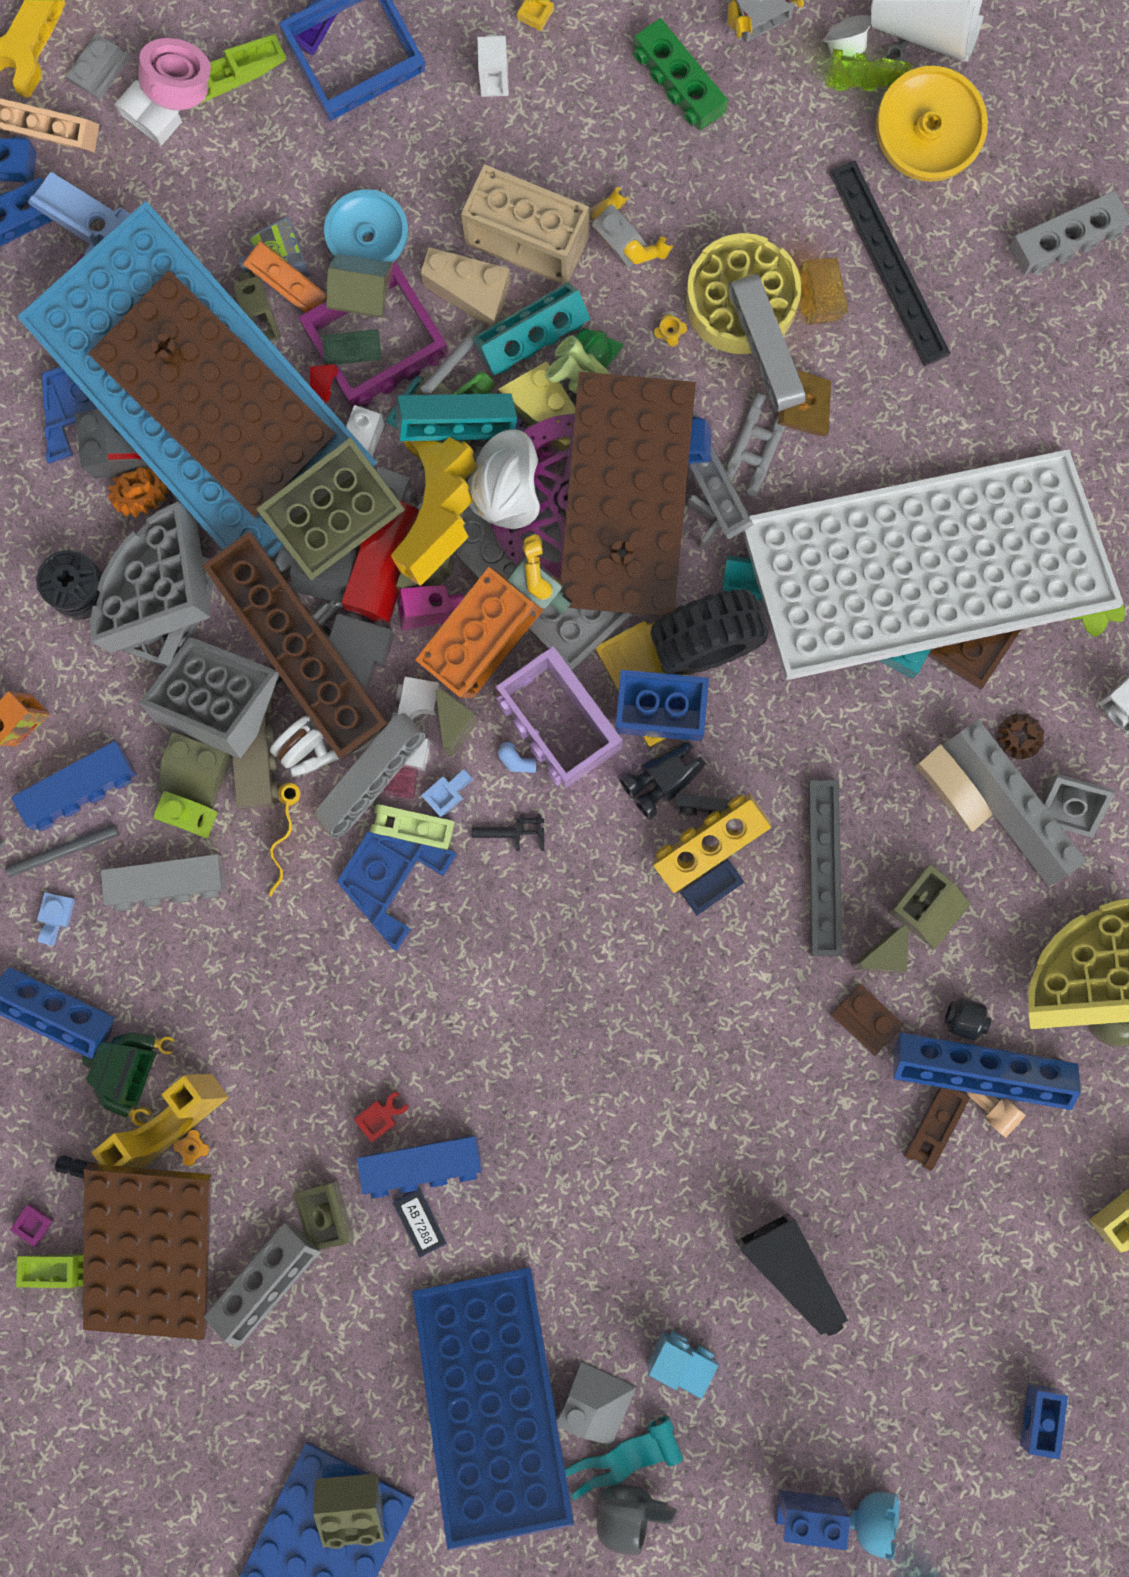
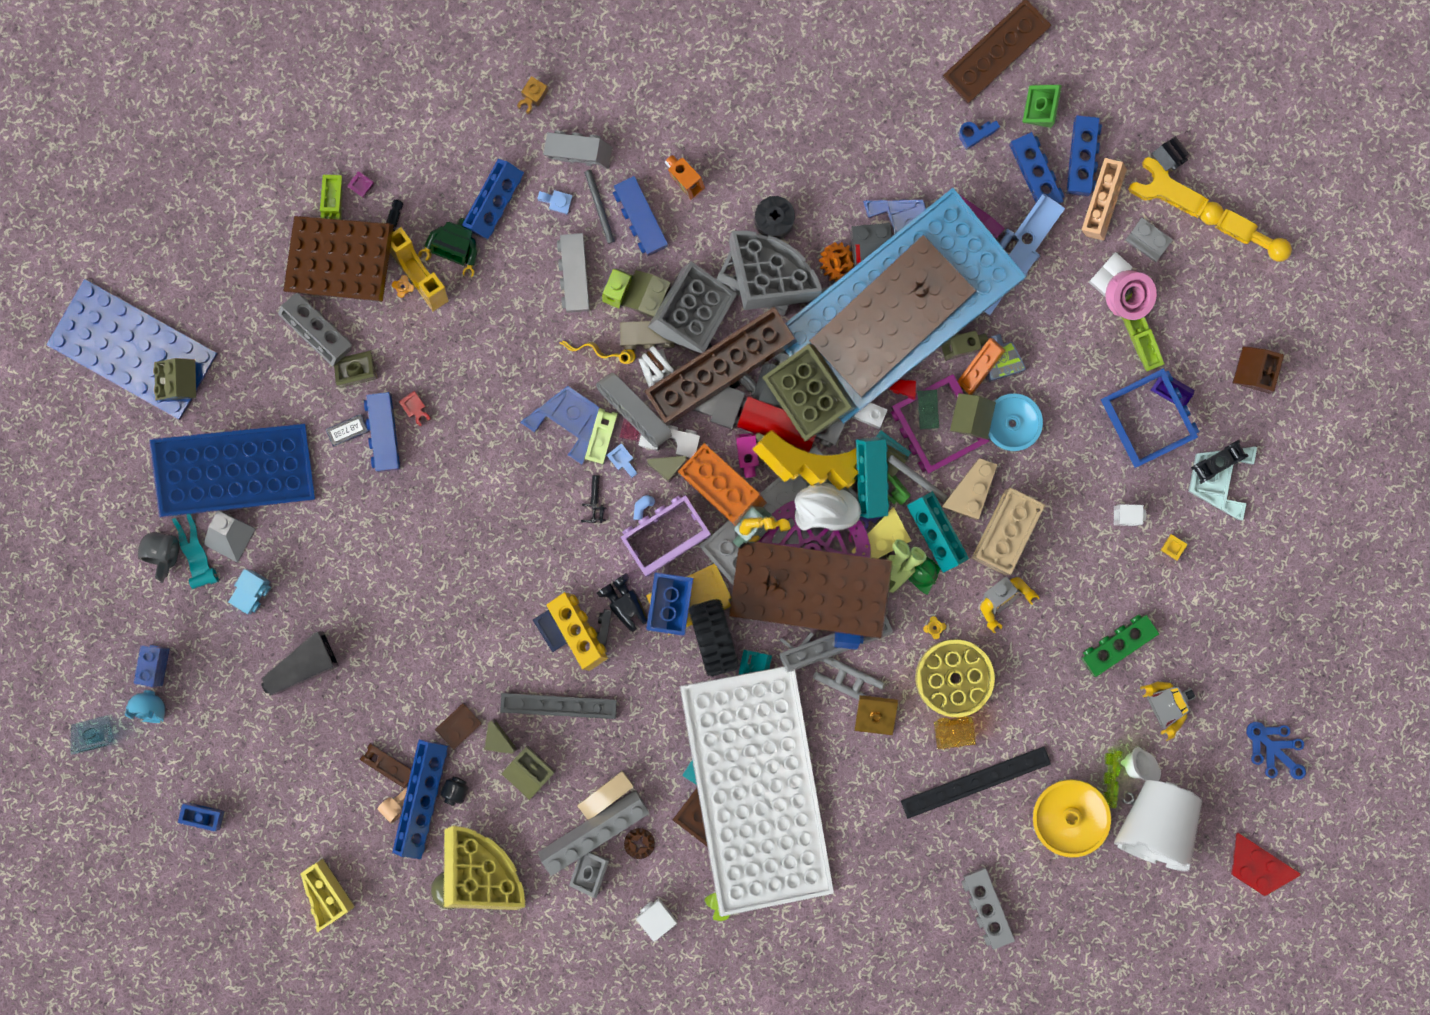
camera: 90 degrees right, 5 degrees up
(766, 342) = (912, 689): light grey beam -> none

